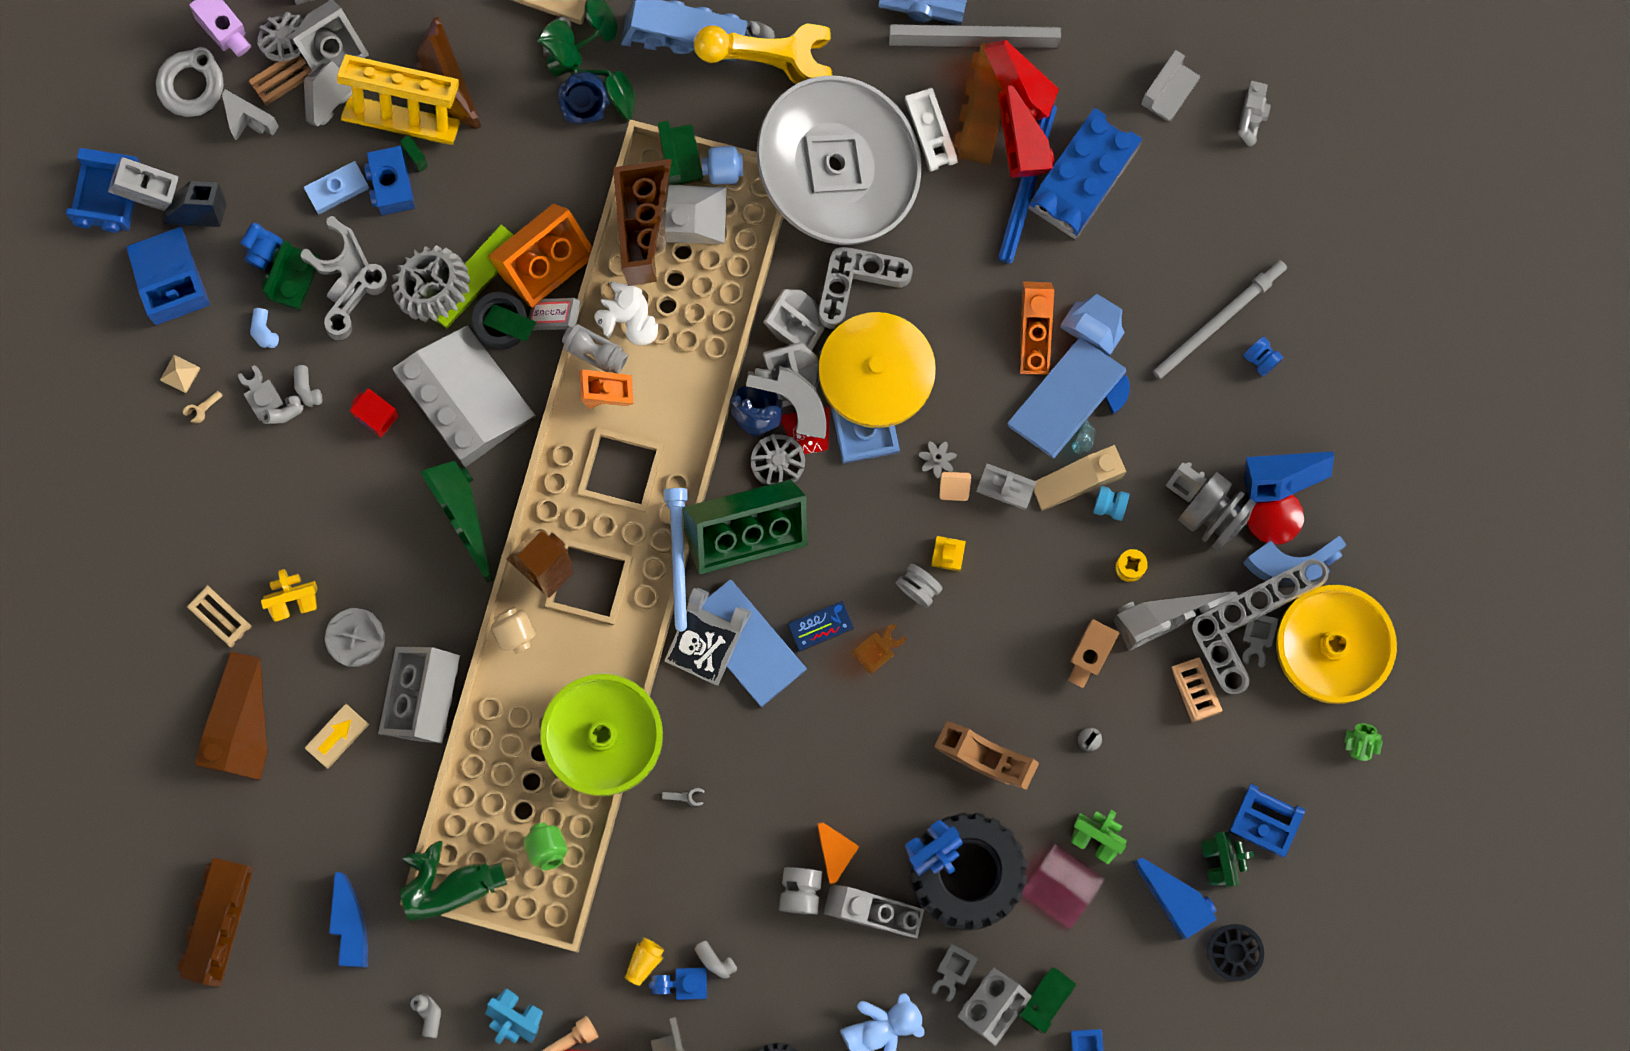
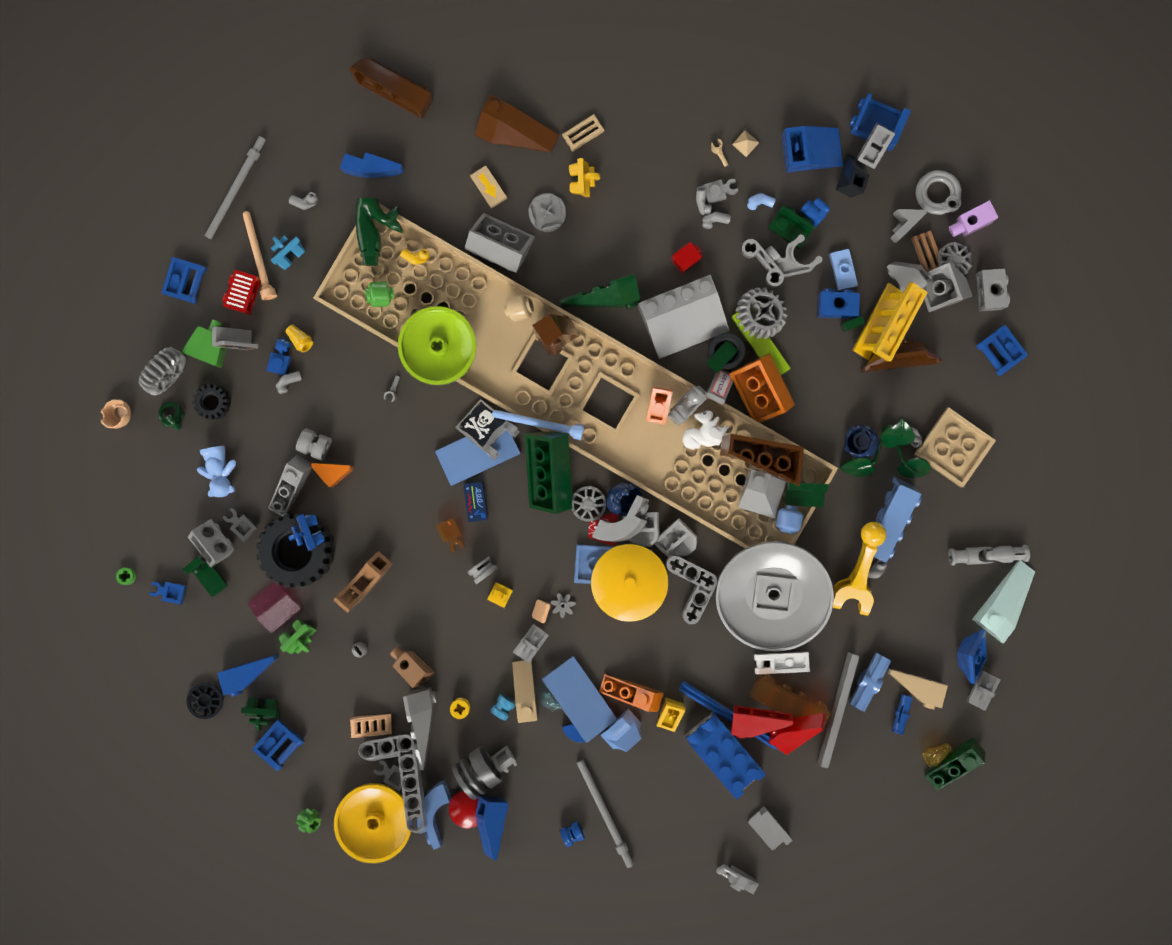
camera: 110 degrees right, 10 degrees up
(475, 806) = (416, 258): none -> yellow arm
(1050, 263) = (671, 714): none -> yellow slope

